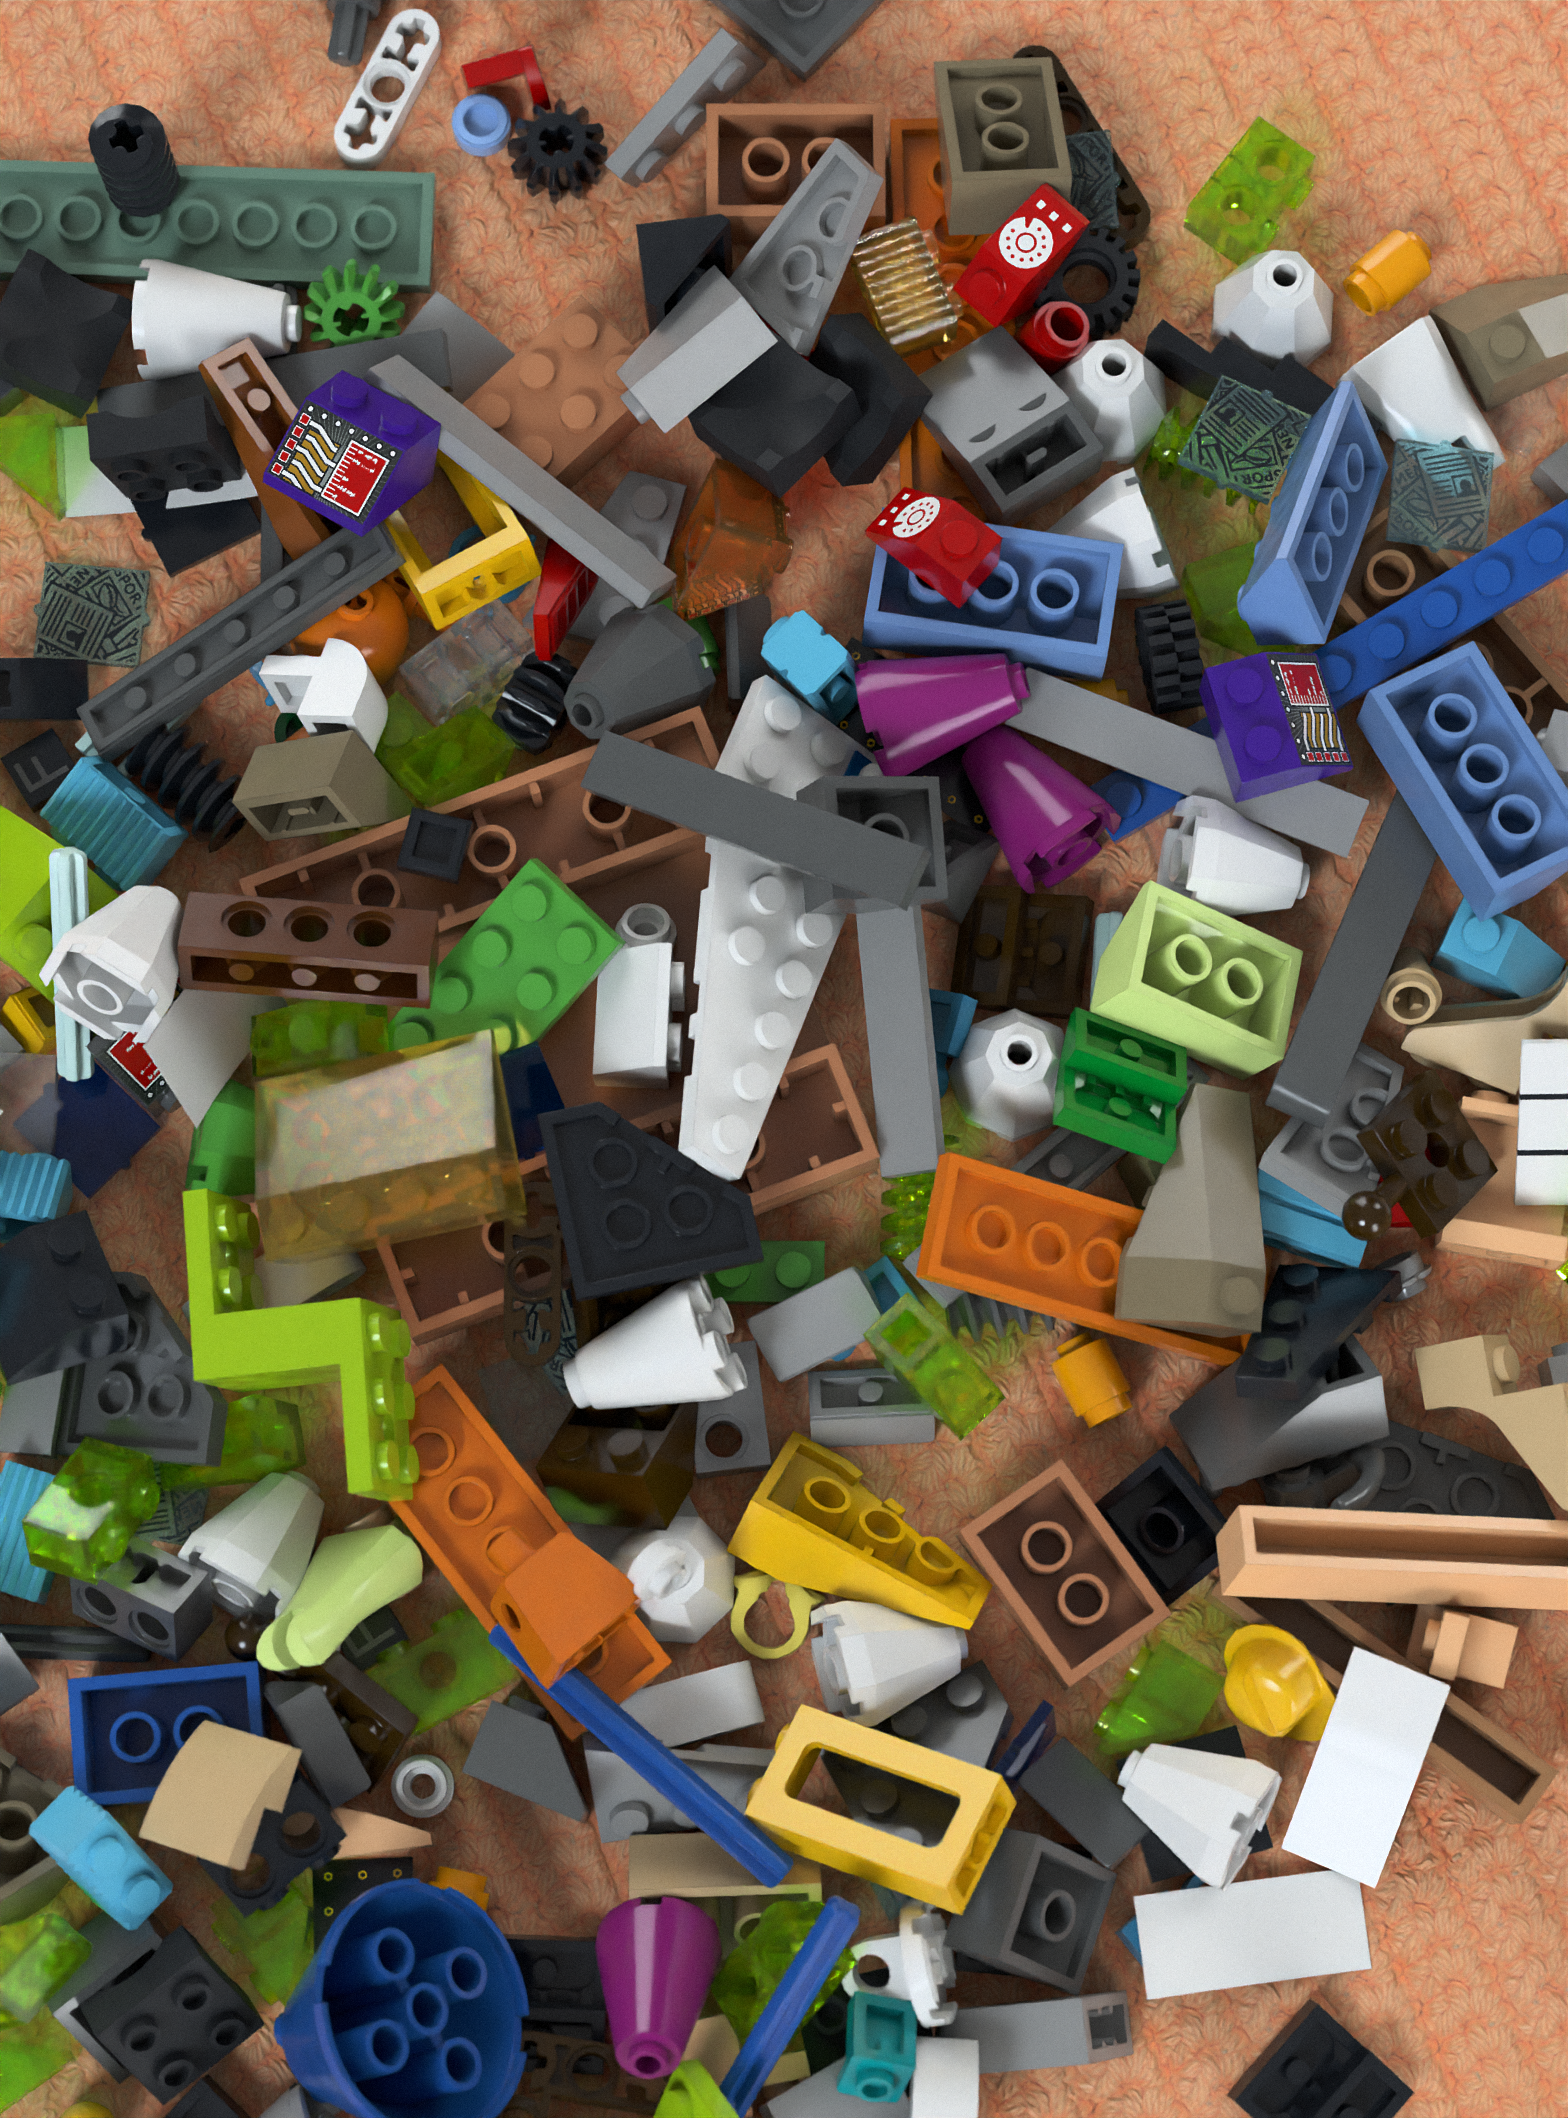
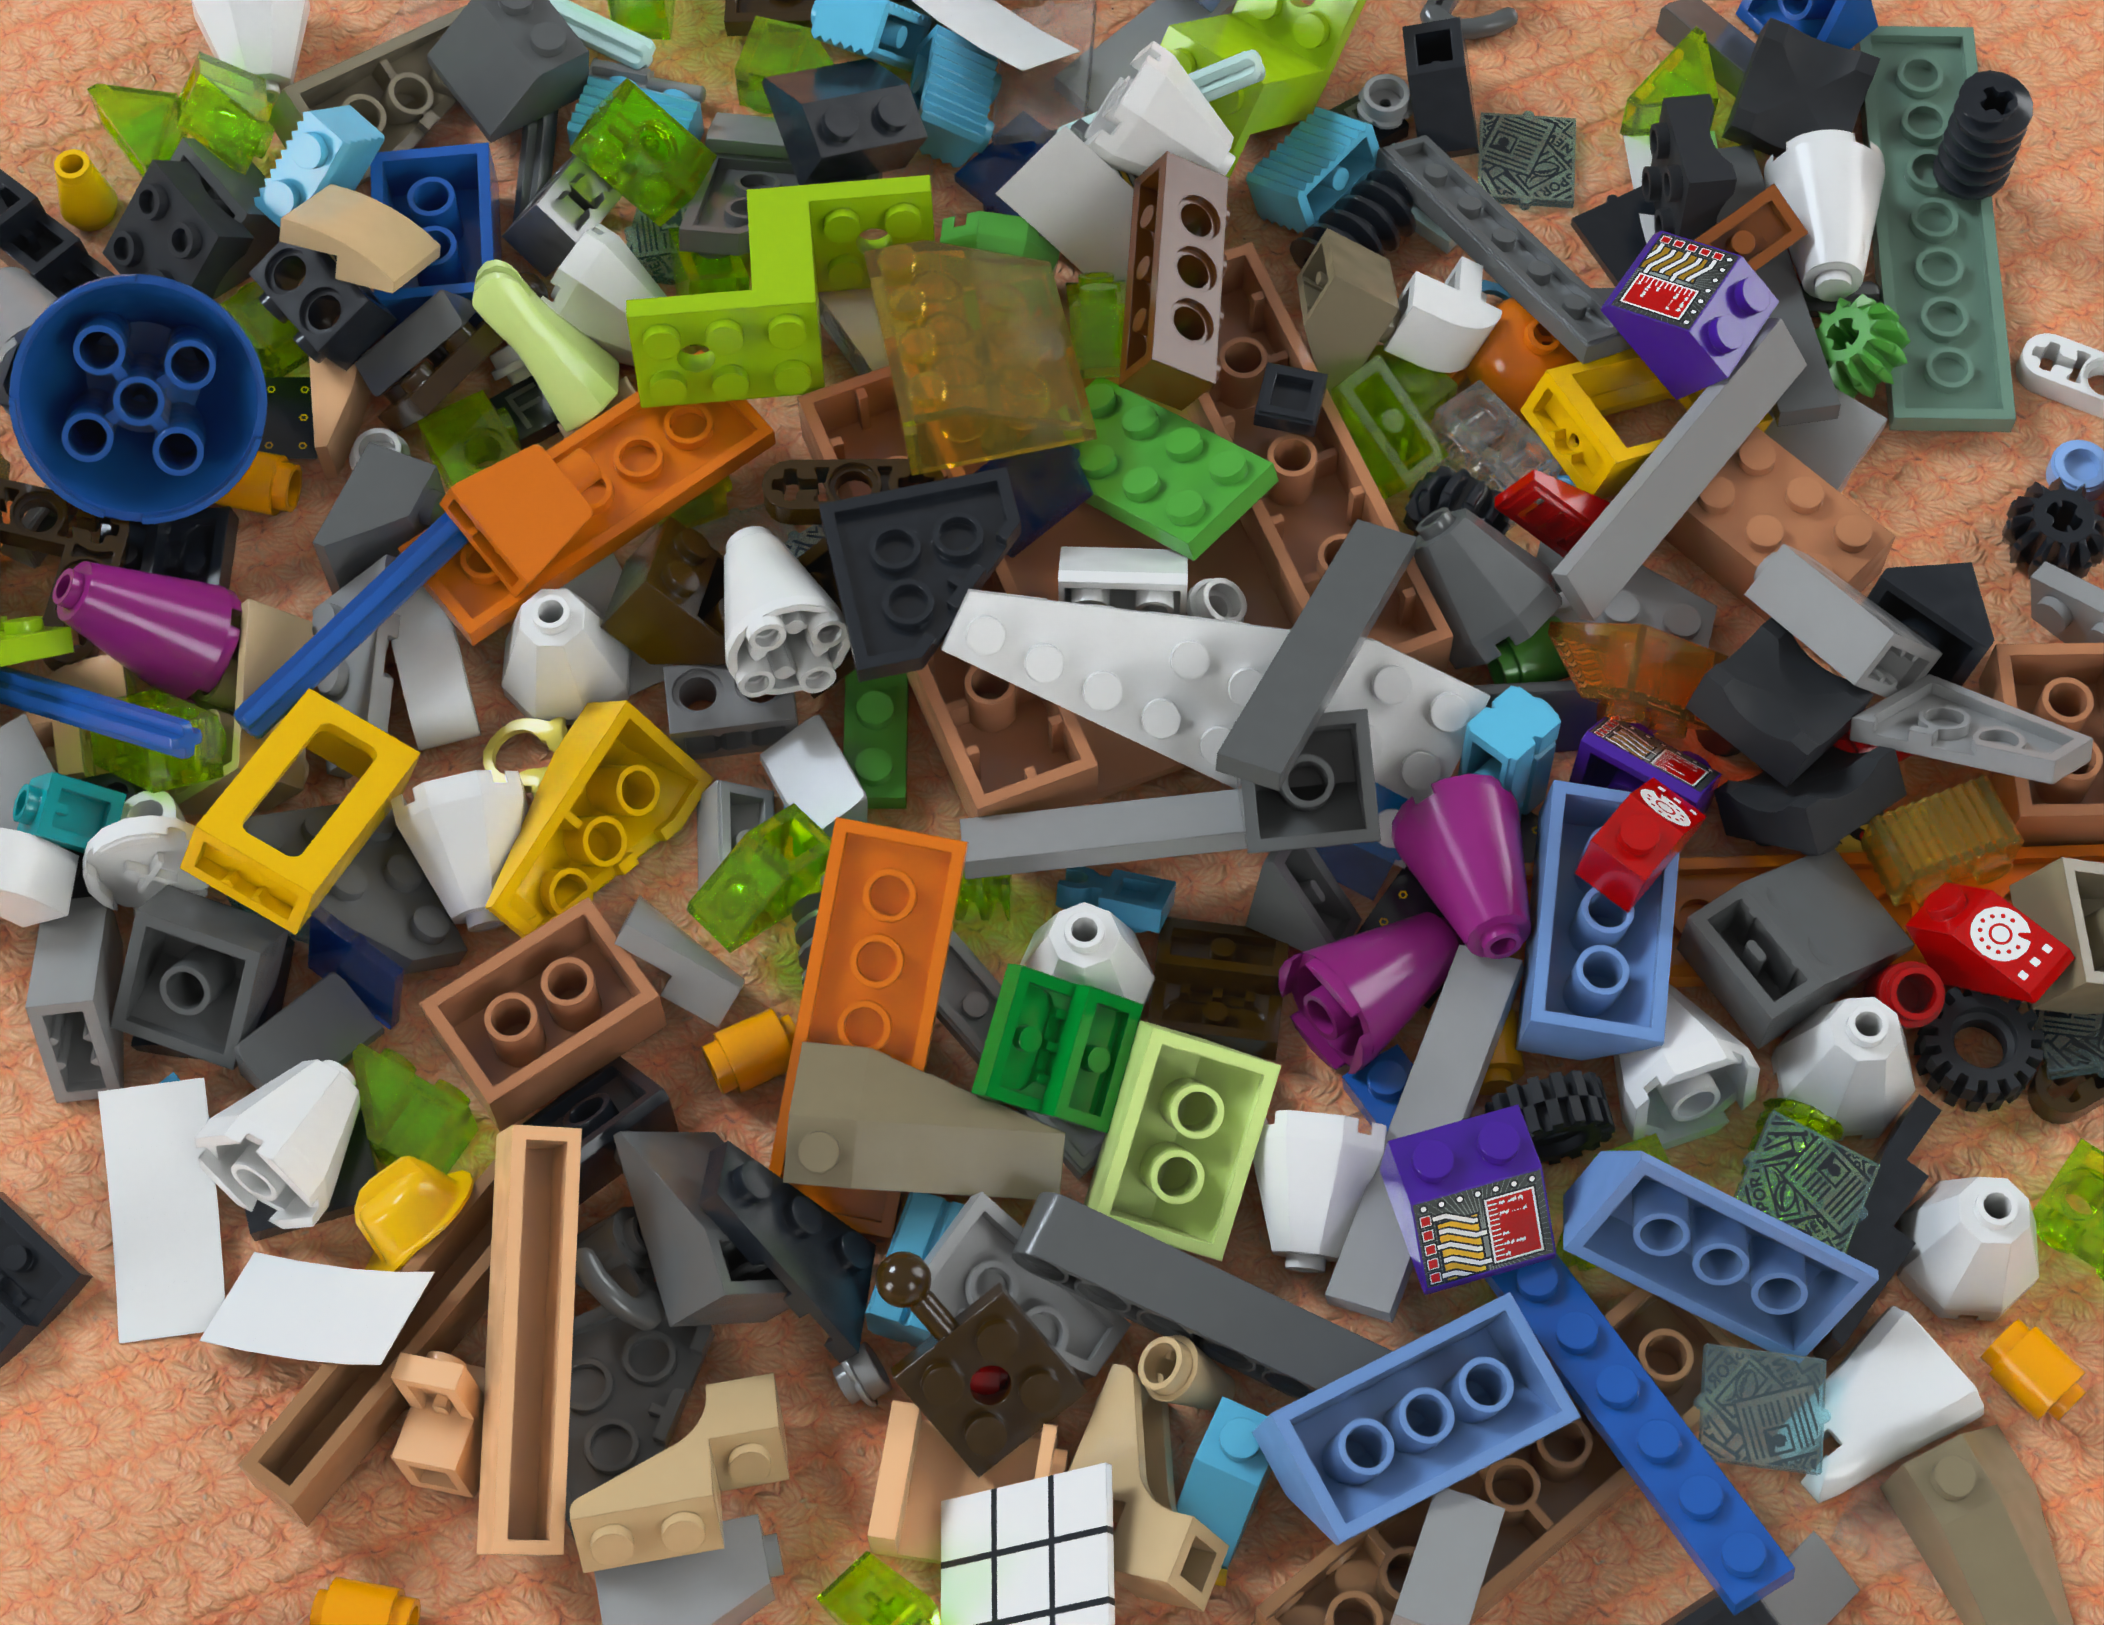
camera: 90 degrees right, 15 degrees down
(30, 733) = (1385, 90): none -> light grey plate
(657, 1570) = (545, 584): white plate -> none
(827, 547) = (1627, 756): none -> slope
(1002, 1453) = (696, 977): none -> light grey slope

